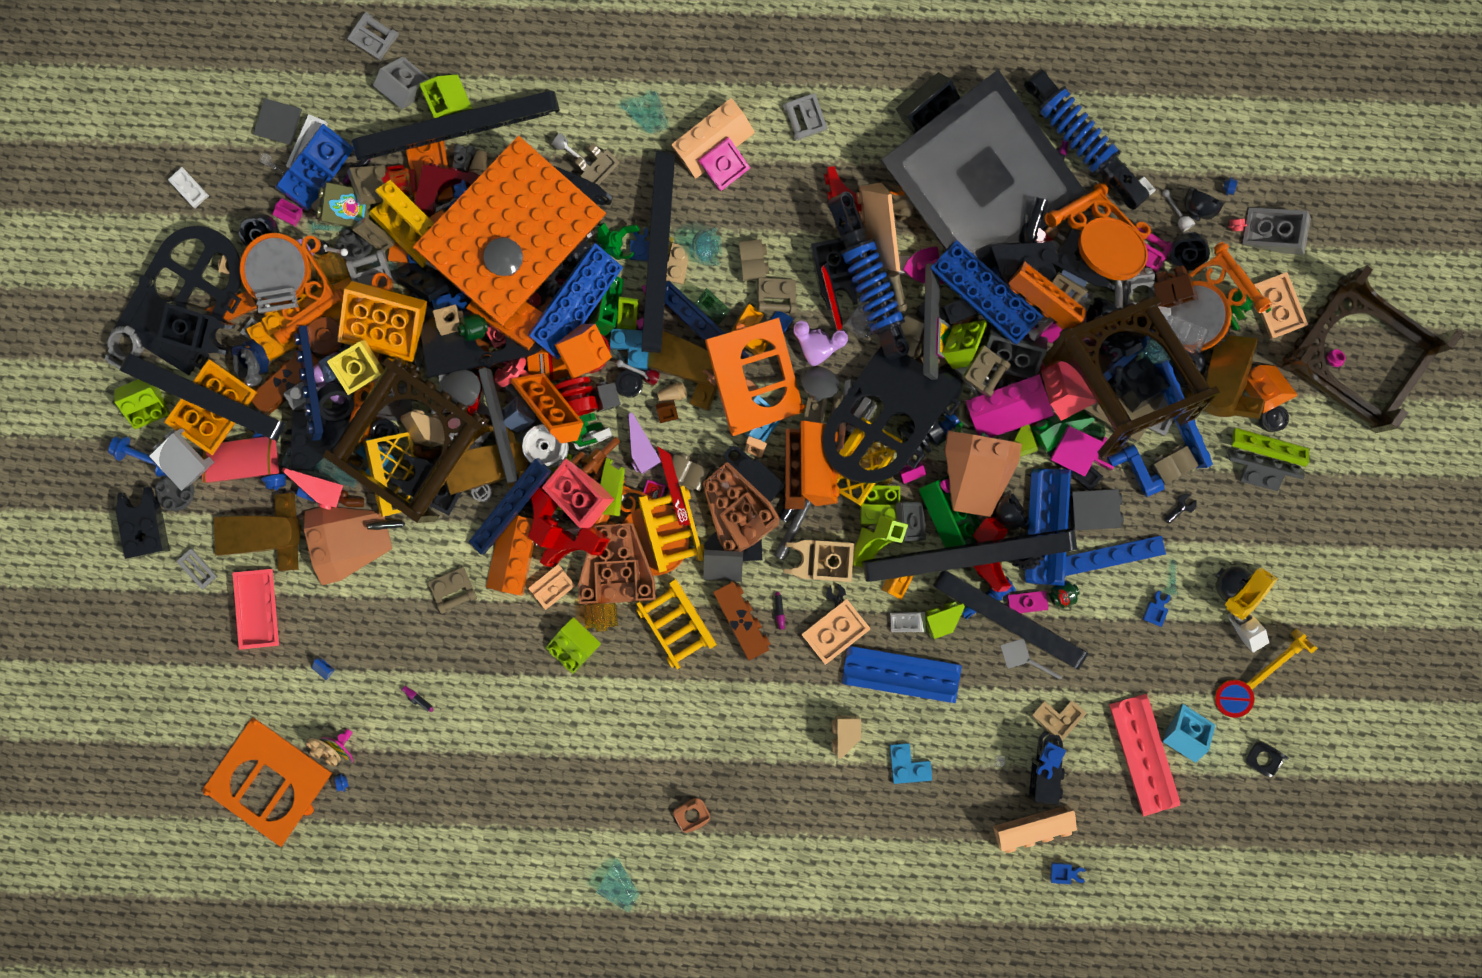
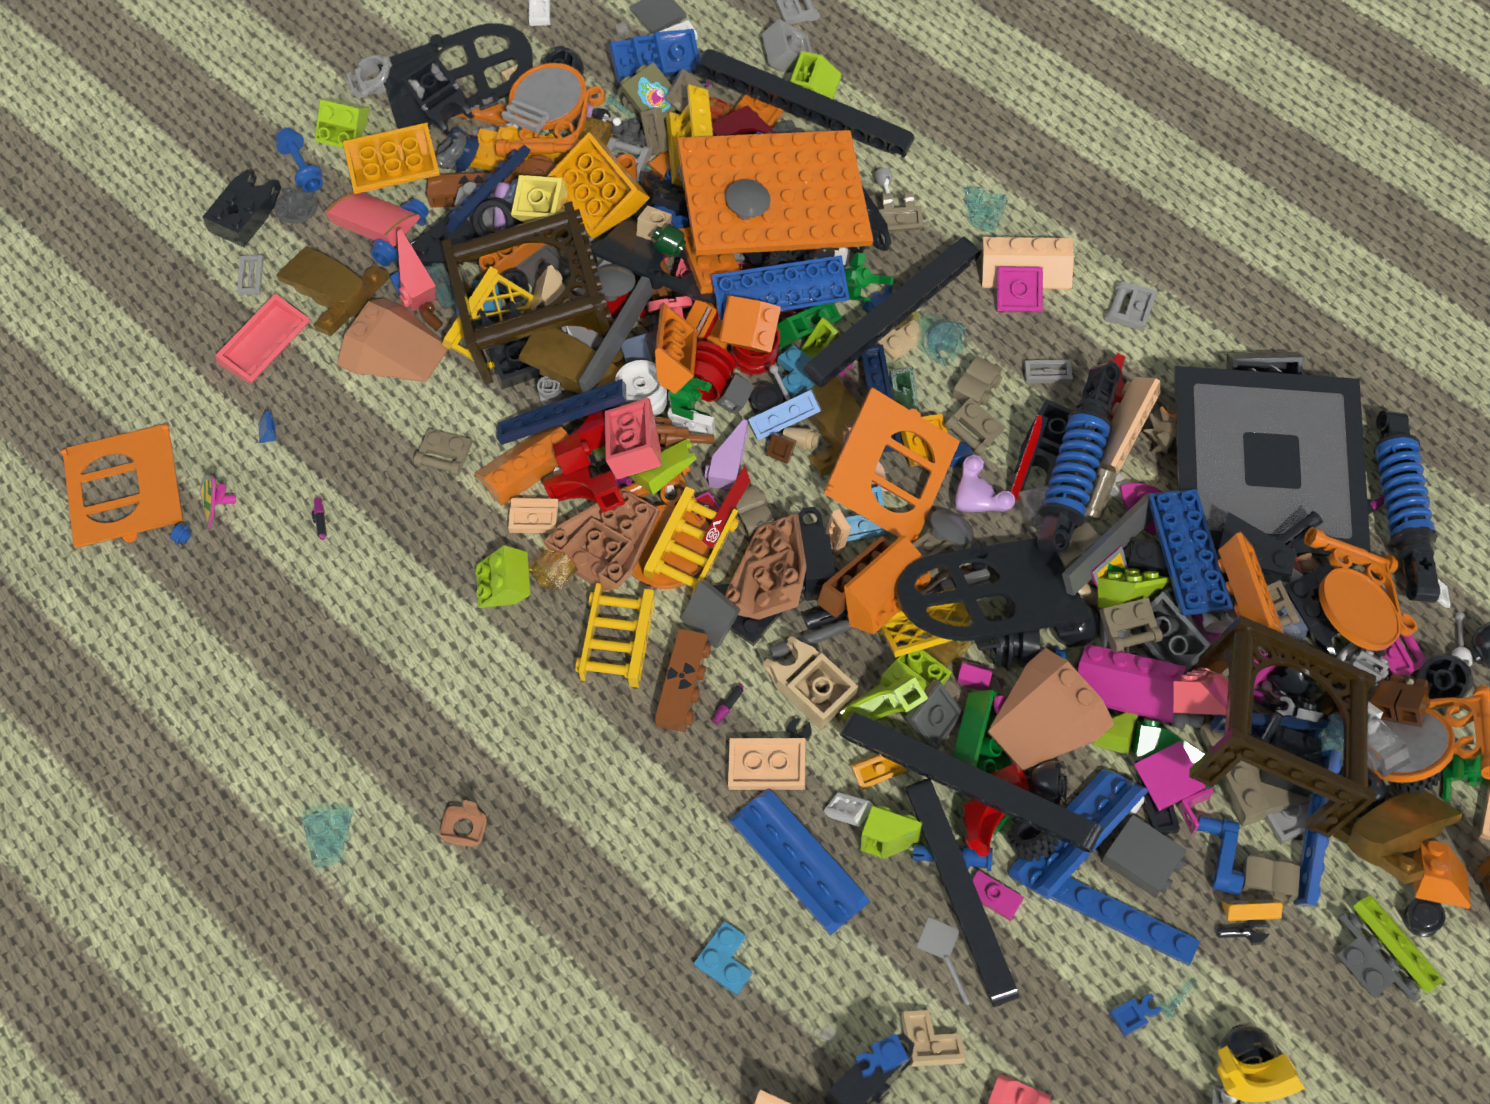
camera: 40 degrees right, 25 degrees down
(179, 460) = (325, 176): light grey panel -> none
(202, 397) = (393, 142): black beam -> none
(287, 212) = (600, 74): dark pink piece -> none
(321, 748) = (194, 491): tan dish -> none
(385, 525) = (439, 355): piece -> none
(652, 388) = (785, 414): none -> light blue plate
(794, 218) = (1049, 375): none -> light grey tile
(847, 734) = (688, 866): tan slope -> none
(1064, 595) = (1041, 914): dark green head -> none
(1176, 492) = (1252, 909): none -> light orange slope

